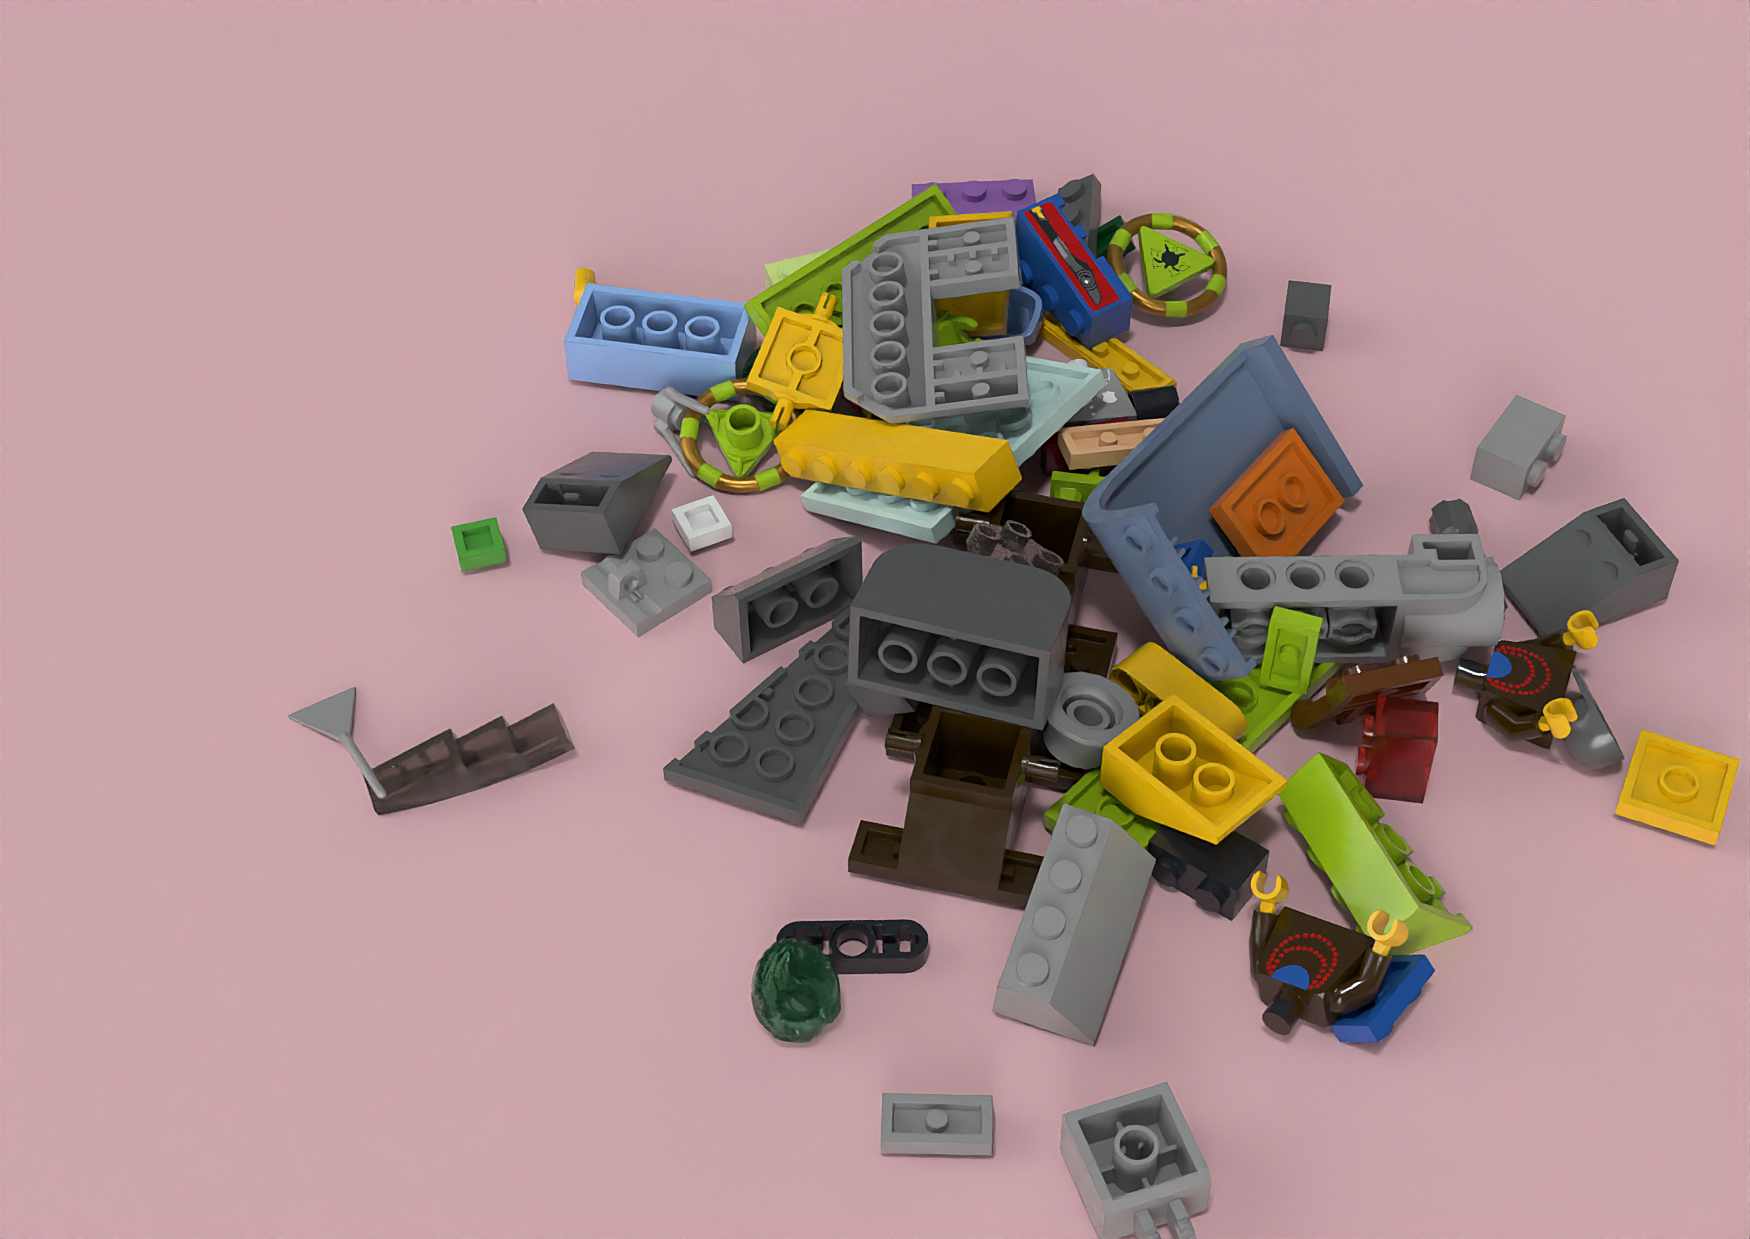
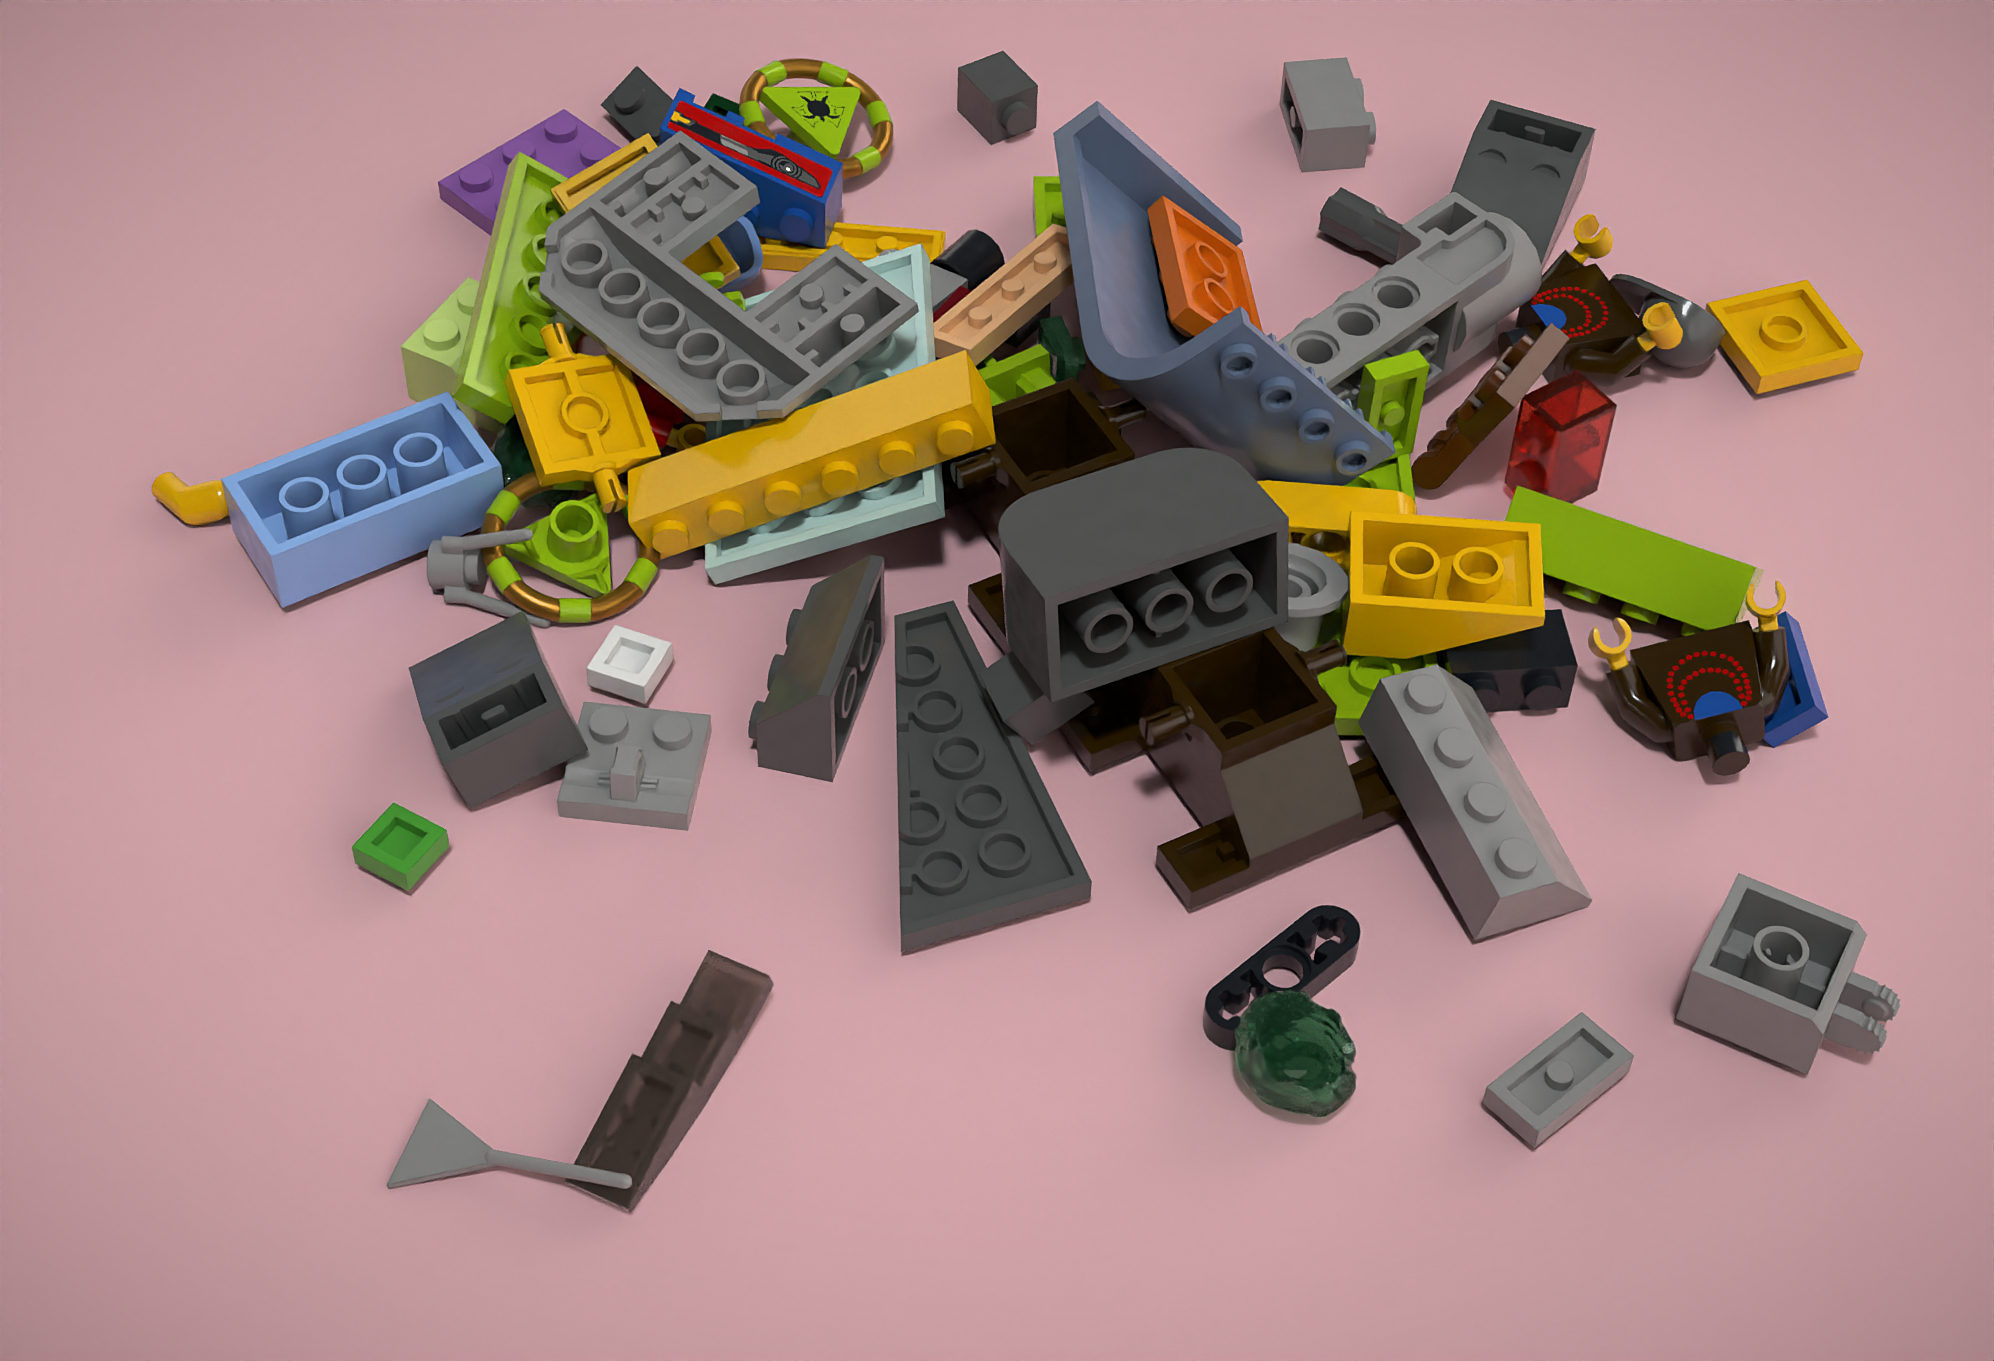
camera: 45 degrees left, 0 degrees up
(1013, 545) = (1060, 460): clear smoke plate -> none

